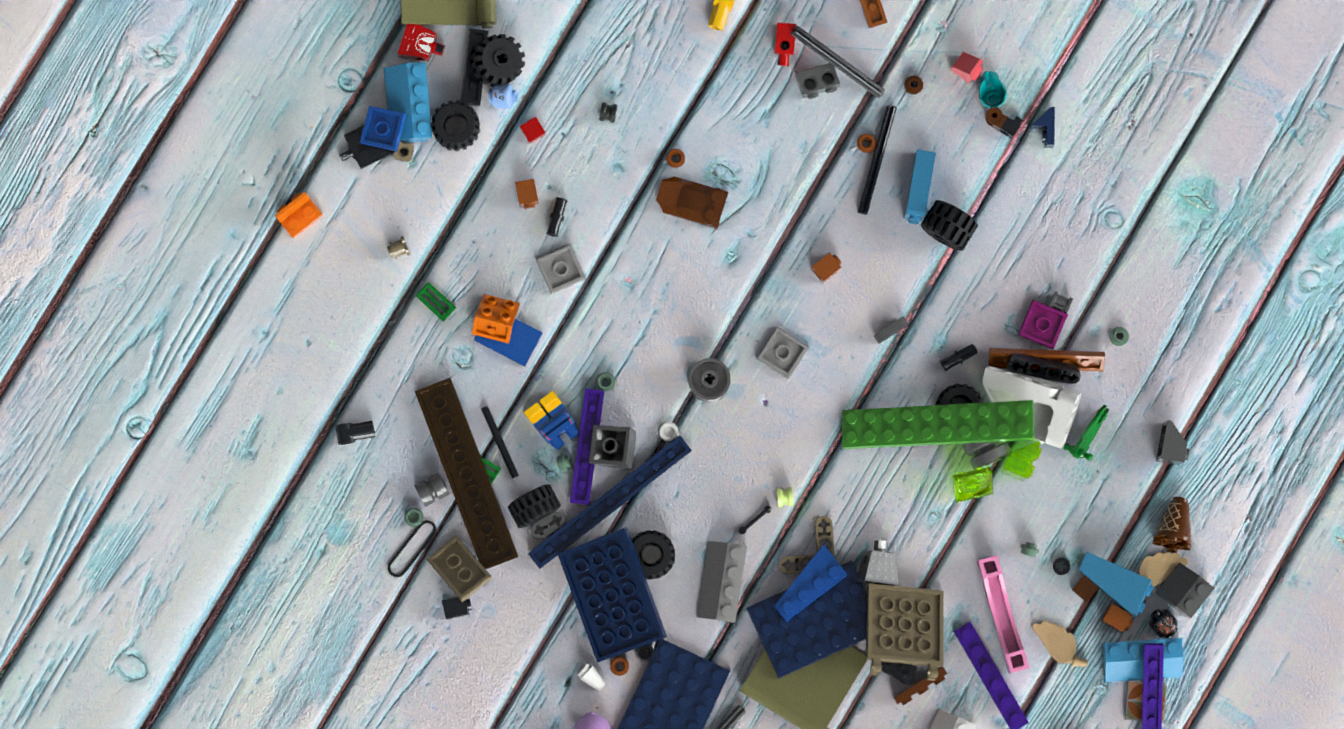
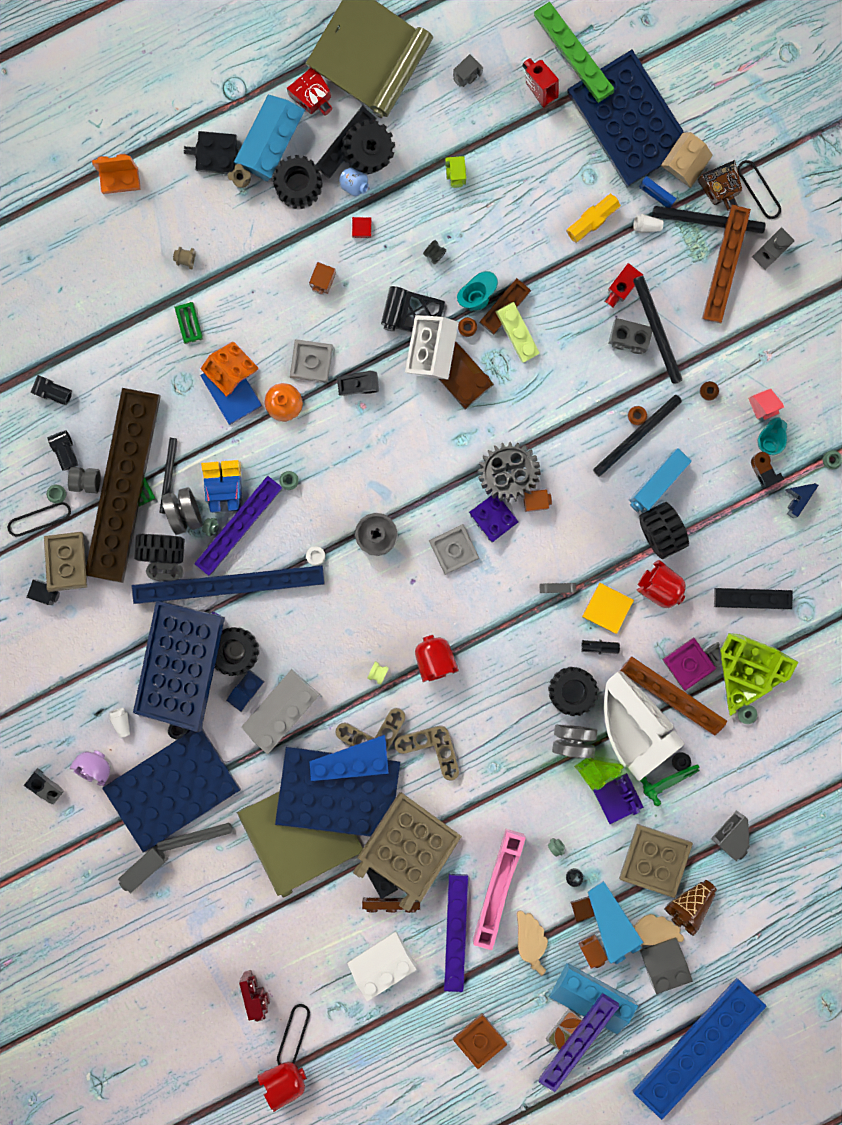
camera: 30 degrees right, 5 degrees up
(383, 128) = (232, 144): blue plate -> none
(394, 473) = (62, 446): none -> black piece
(532, 463) = (182, 511): none -> flat silver wheel
(556, 217) = (335, 314): black pin -> none
(559, 318) = (283, 402): none -> orange cylinder
(583, 34) = (456, 171): none -> lime brick
(606, 179) = (397, 307): none -> black piece
(612, 446) = (259, 539): dark grey slope -> none
(613, 263) = (356, 383): none -> black plate
(625, 666) = (144, 727): dark orange plate -> none
(657, 193) = (431, 346): none -> white slope
(665, 122) = (477, 291): none -> teal piece
(681, 584) = (245, 690): none -> dark blue slope
(696, 121) = (515, 293): none -> reddish brown plate
(721, 136) = (517, 332): none -> yellowish green plate
(767, 509) = (325, 678): black hinge -> none
(777, 247) = (512, 487): none -> dark grey gear
(799, 304) = (493, 517): none -> dark purple hinge
(825, 454) = (435, 658): none -> red cylinder
(867, 526) = (432, 741): none -> dark tan beam
(878, 566) = (419, 782): torso -> none
(938, 424) = (547, 696): bright green plate -> none
(944, 320) = (607, 608): none -> yellow tile
(972, 484) = (543, 763): clear neon green plate -> none
(978, 272) = (662, 586): none -> red cylinder
(1042, 371) = (650, 686): black beam -> none
(1053, 72) = (836, 455): none -> sand green plate
(1055, 476) = (618, 799): none -> dark purple hinge
(1061, 236) = (753, 598): none -> black plate
(1084, 415) = (675, 761): none -> black plate
(1097, 296) = (752, 669): none -> lime wedge
(1120, 508) = (655, 860): none -> dark tan plate
(1163, 623) = (630, 980): black head -> none
(1258, 644) = (699, 1048): none -> blue plate

